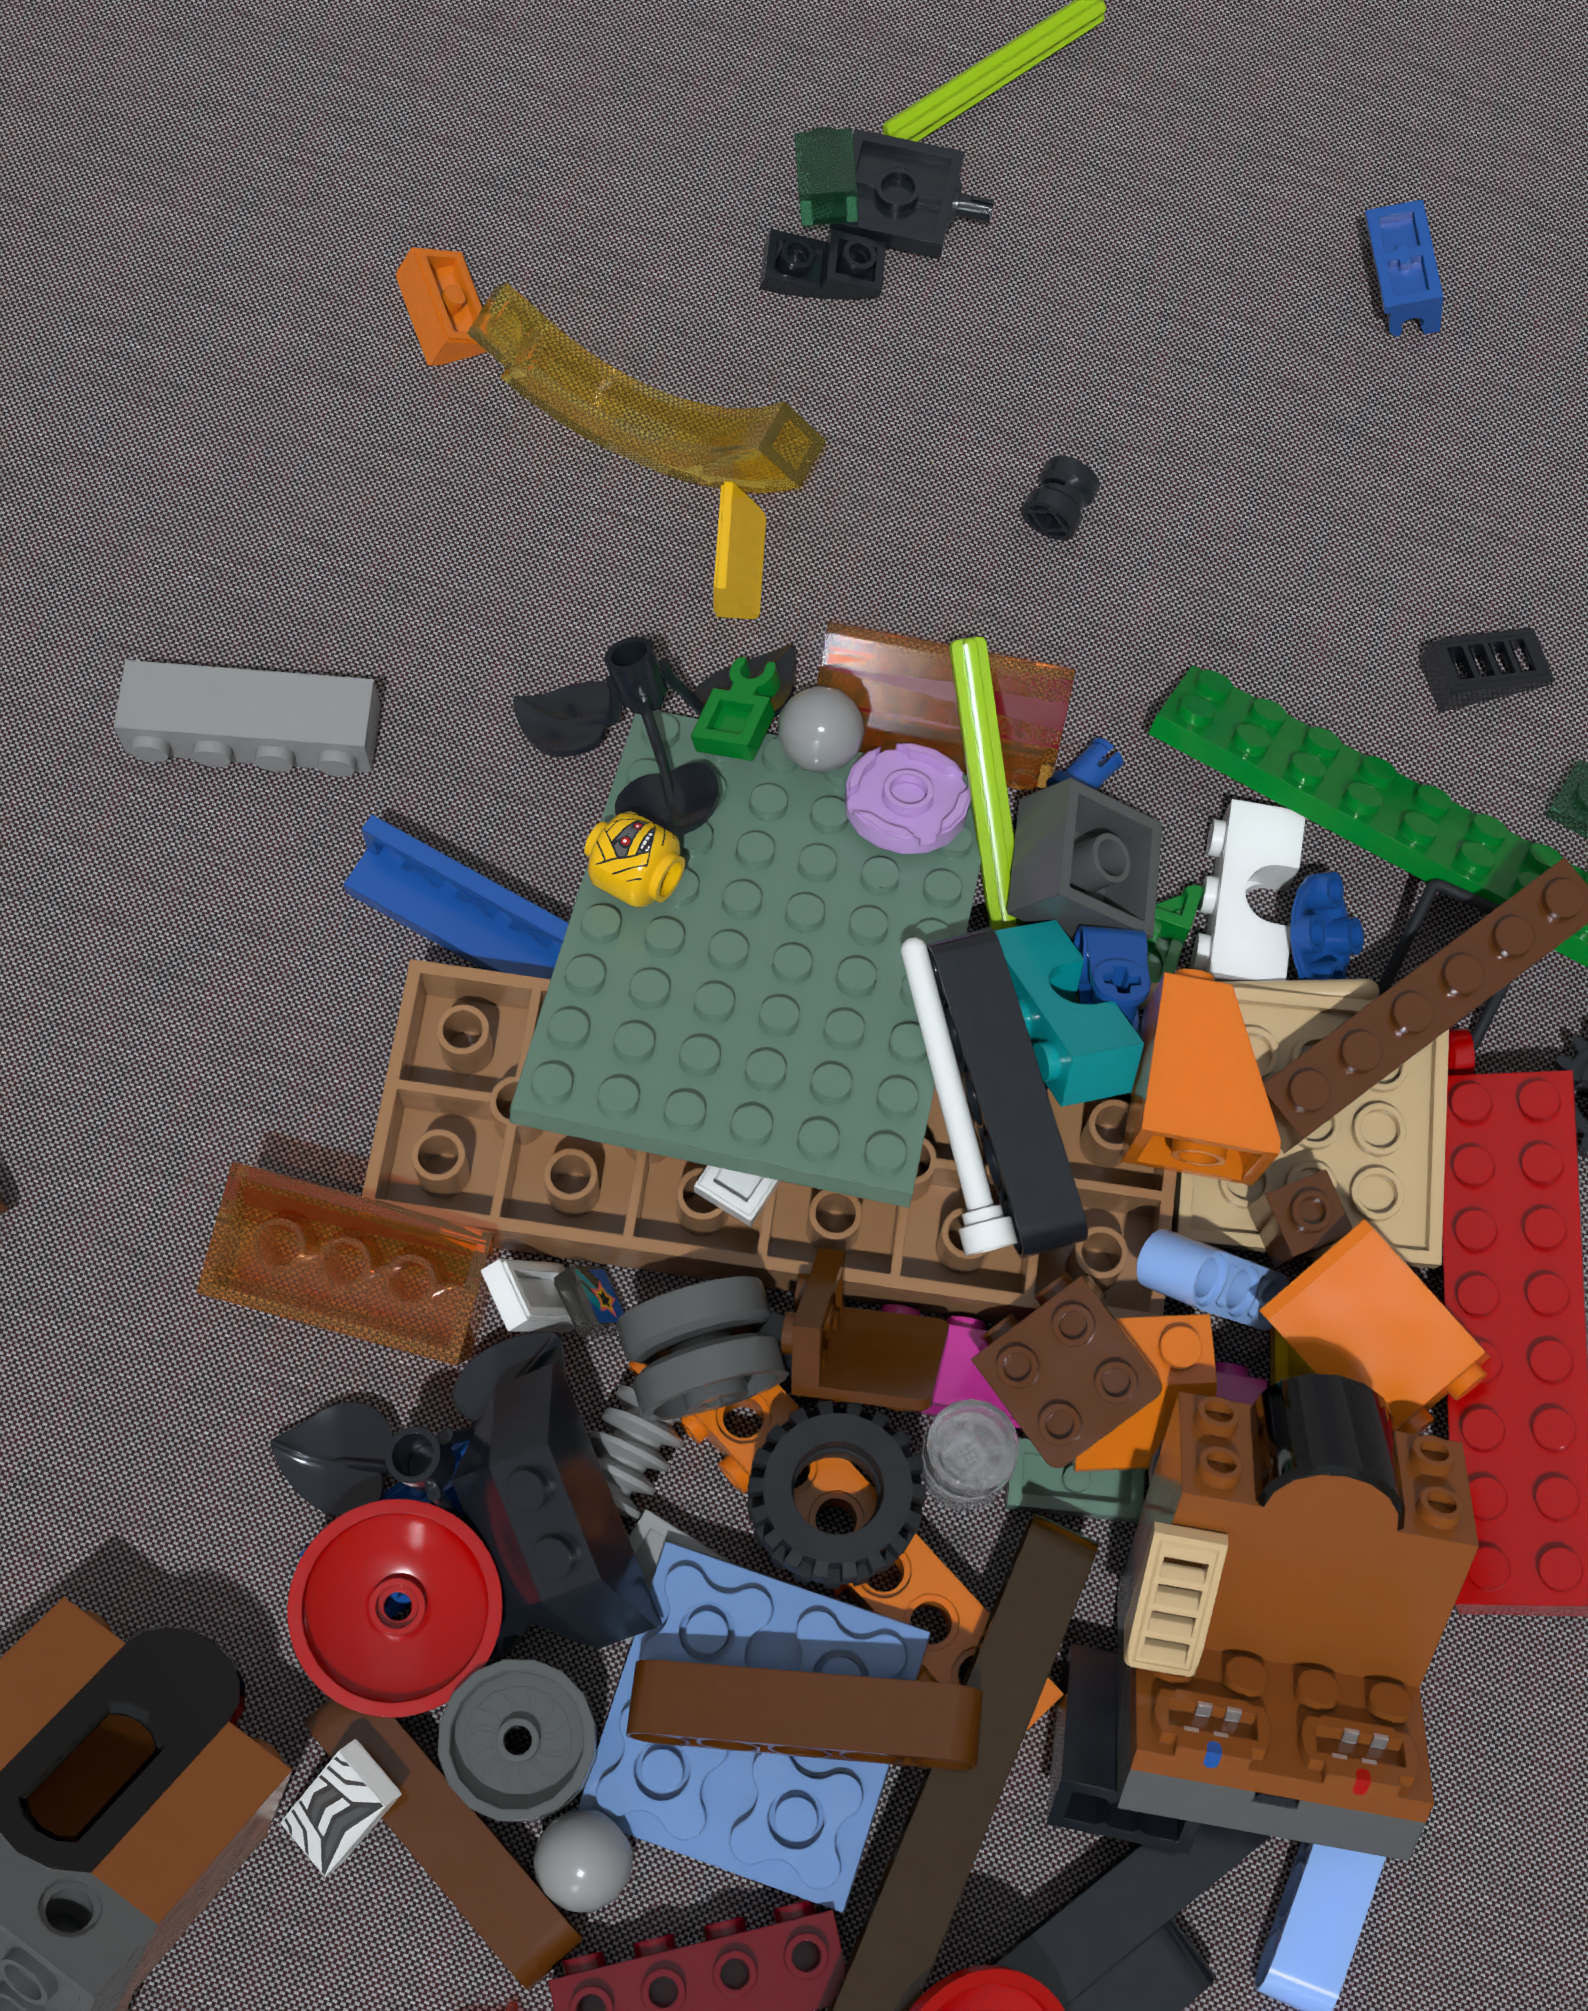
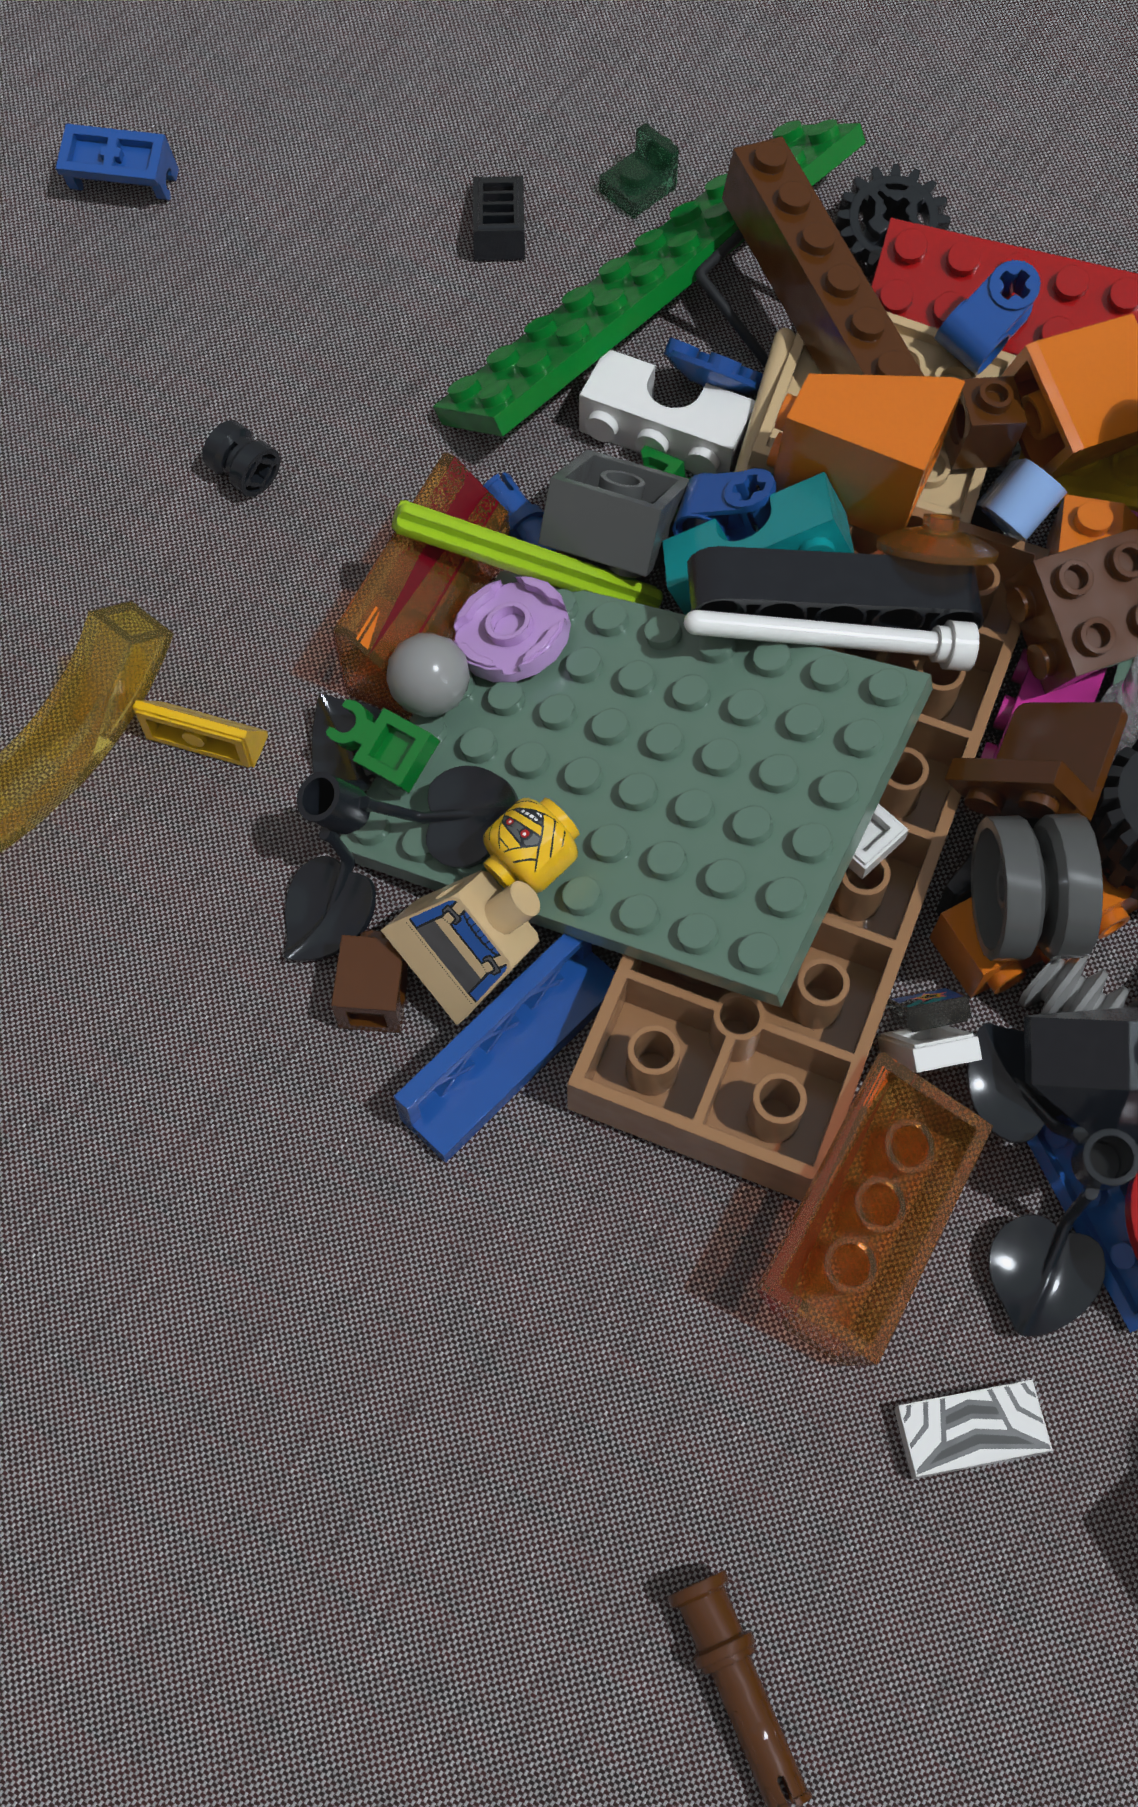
camera: 70 degrees left, 5 degrees down
(177, 1415) = (972, 1429): none -> tile
(248, 717) = (229, 1216): light grey brick -> none
(500, 775) = (369, 984): none -> reddish brown brick
(540, 834) = (466, 938): none -> tan torso
(1094, 1188) = (938, 543): none -> clear orange dish
(1444, 1200) = (987, 320): none -> blue piece

